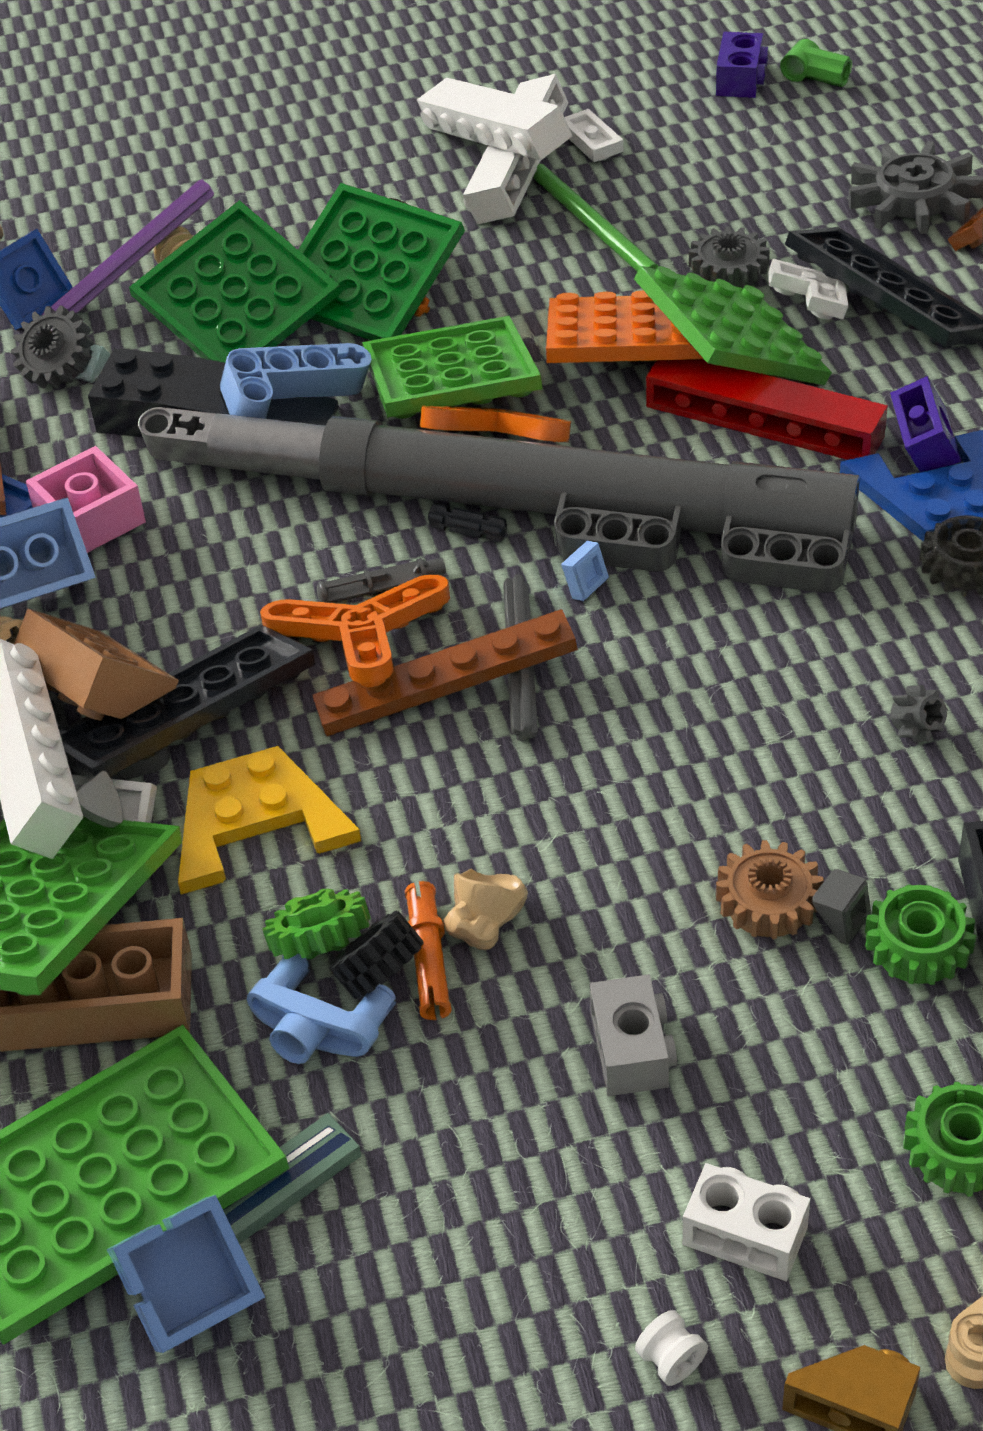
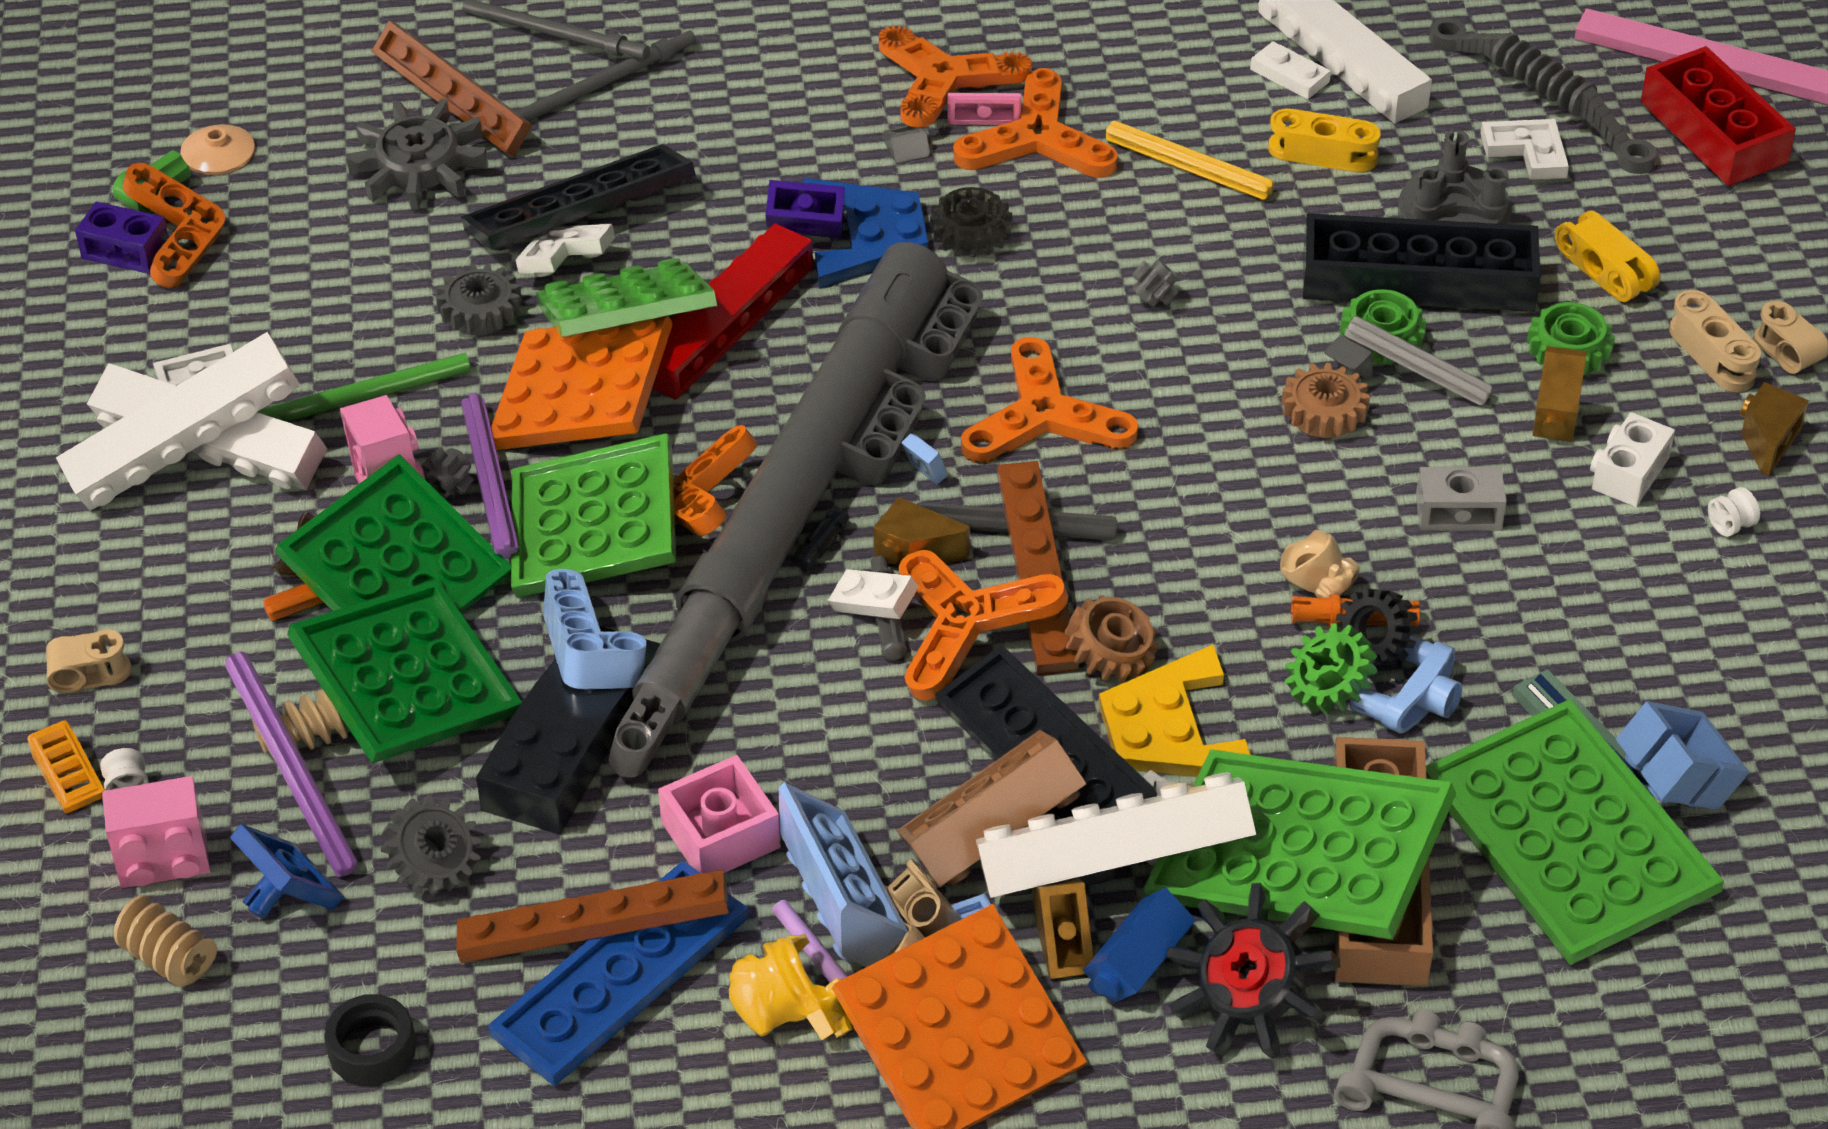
camera: 85 degrees left, 0 degrees up
(57, 209) = (156, 832): none -> bright pink brick
(134, 194) = (123, 769): none -> white wheel
(150, 169) = (54, 744): none -> light orange slope
(250, 154) = (83, 661): none -> tan piece
(350, 761) = (1112, 638): none -> medium nougat gear
(382, 558) = (873, 593): none -> white plate
(474, 580) = (914, 528): none -> pearl gold slope
(492, 229) = (377, 435): none -> bright pink brick
(494, 280) = (448, 472): none -> dark grey gear
(494, 304) = (489, 476): none -> medium lavender axle
(723, 651) = (1066, 415): none -> orange piece
(765, 92) = (188, 227): none -> orange beam
(823, 1119) = (1559, 393): none -> pearl gold slope
(853, 968) = (1418, 360): none -> light grey axle
(887, 93) = (218, 149): none -> light nougat dish

